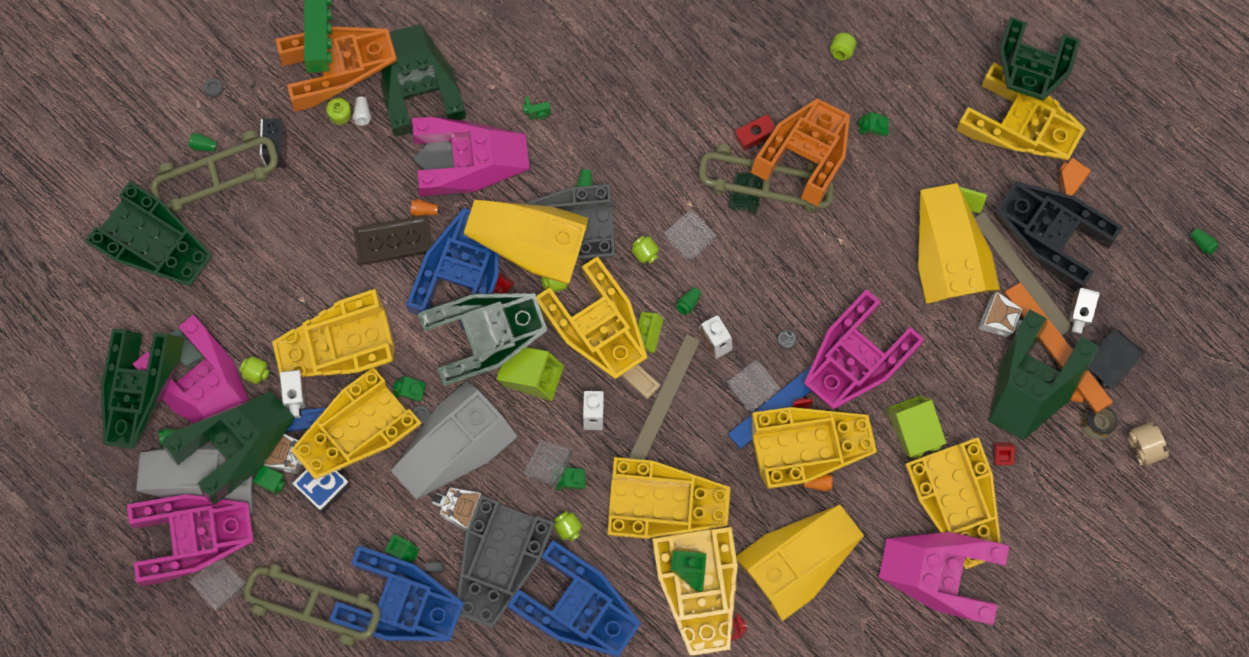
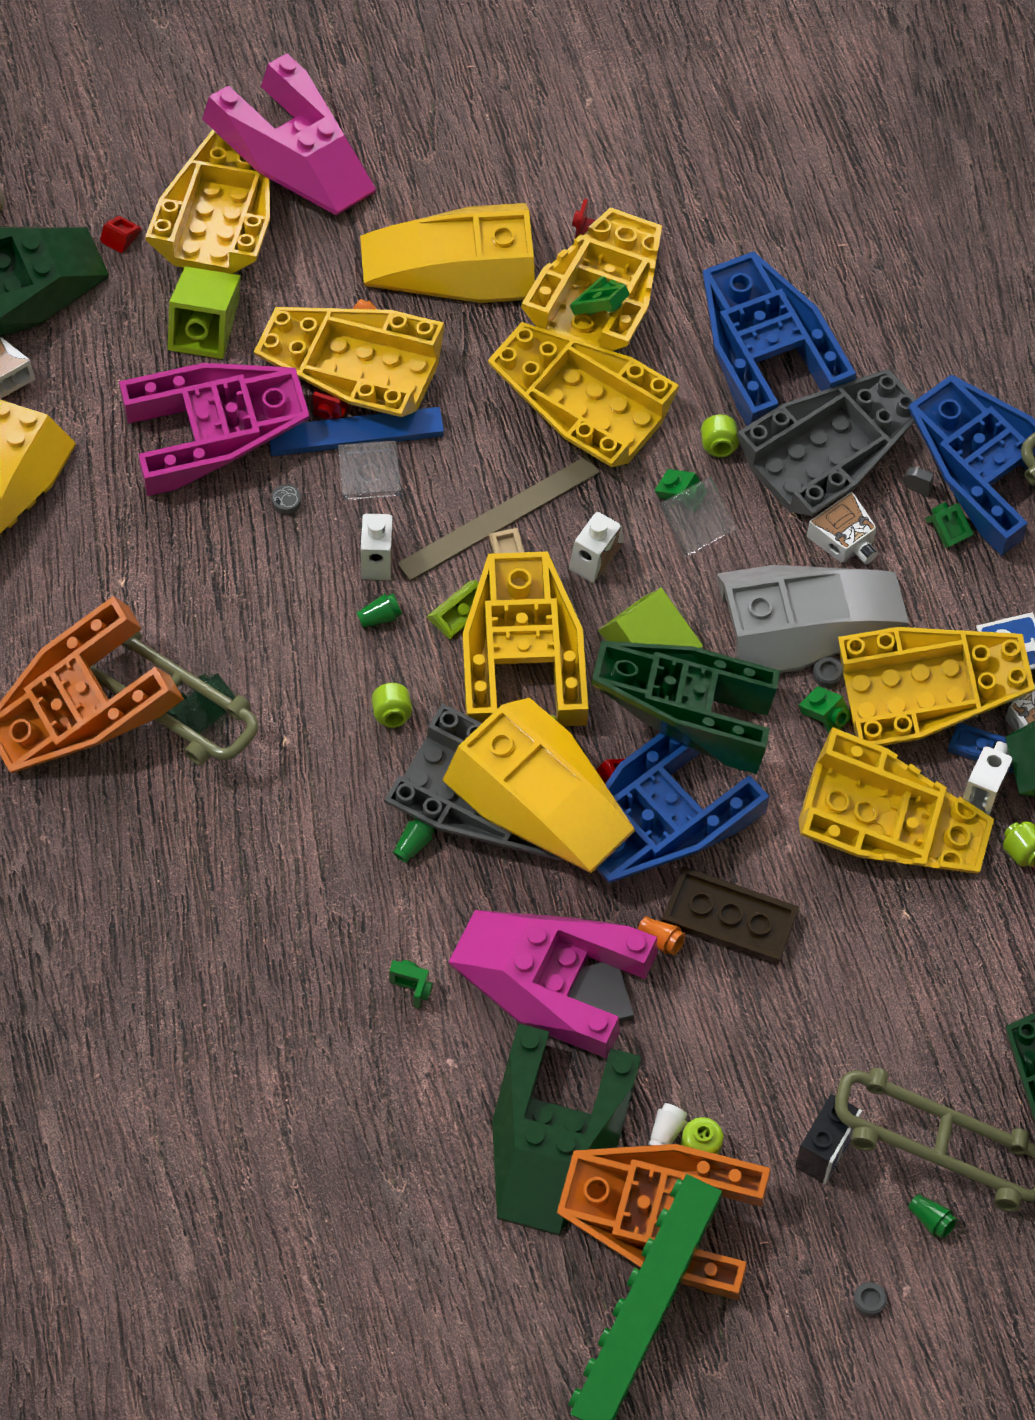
camera: 150 degrees left, 10 degrees down
(690, 235) = (316, 695): clear tile -> none
(747, 139) = (144, 782): red piece -> none

